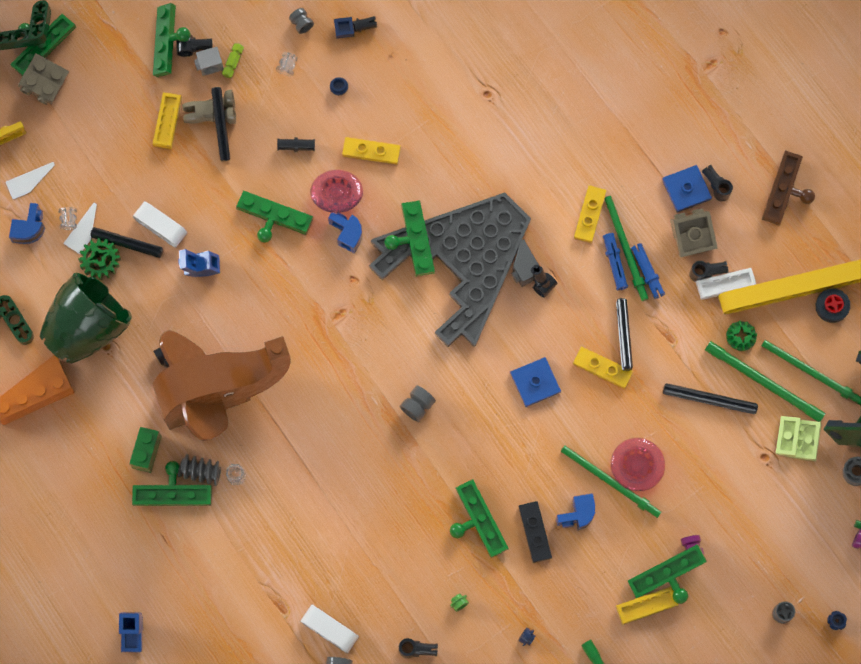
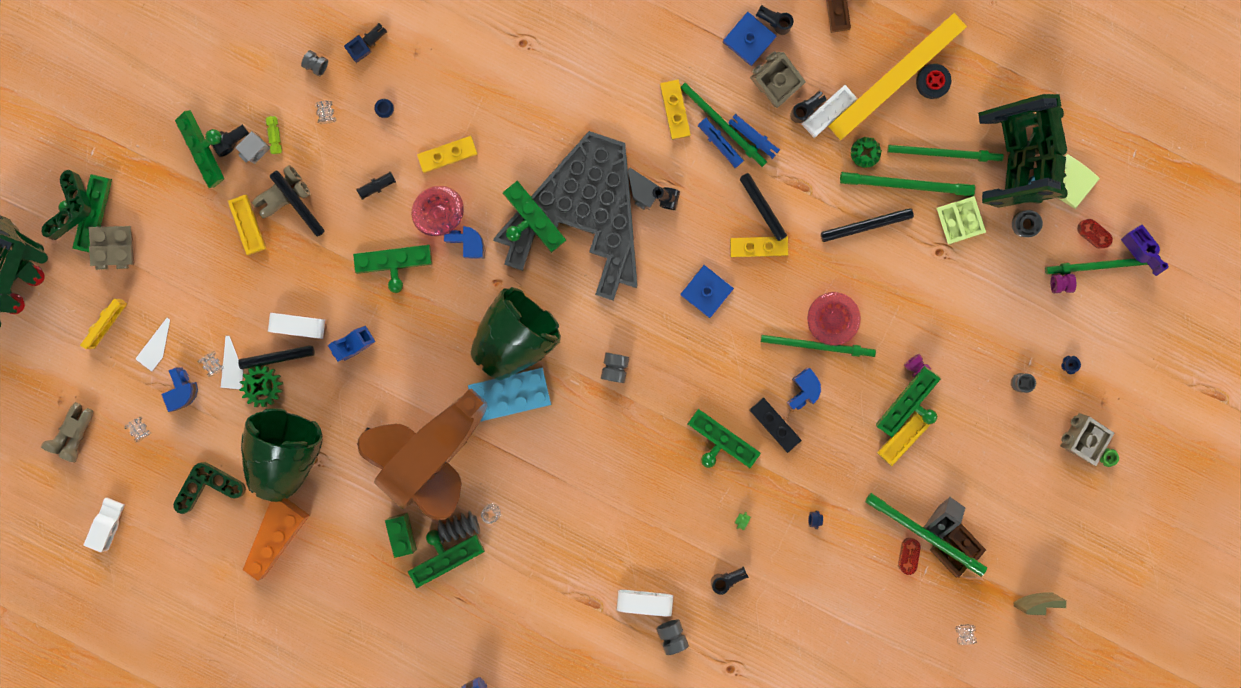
camera: 30 degrees left, 15 degrees up
(315, 382) = (513, 394): none -> medium azure plate
(343, 325) = (513, 335): none -> dark green piece

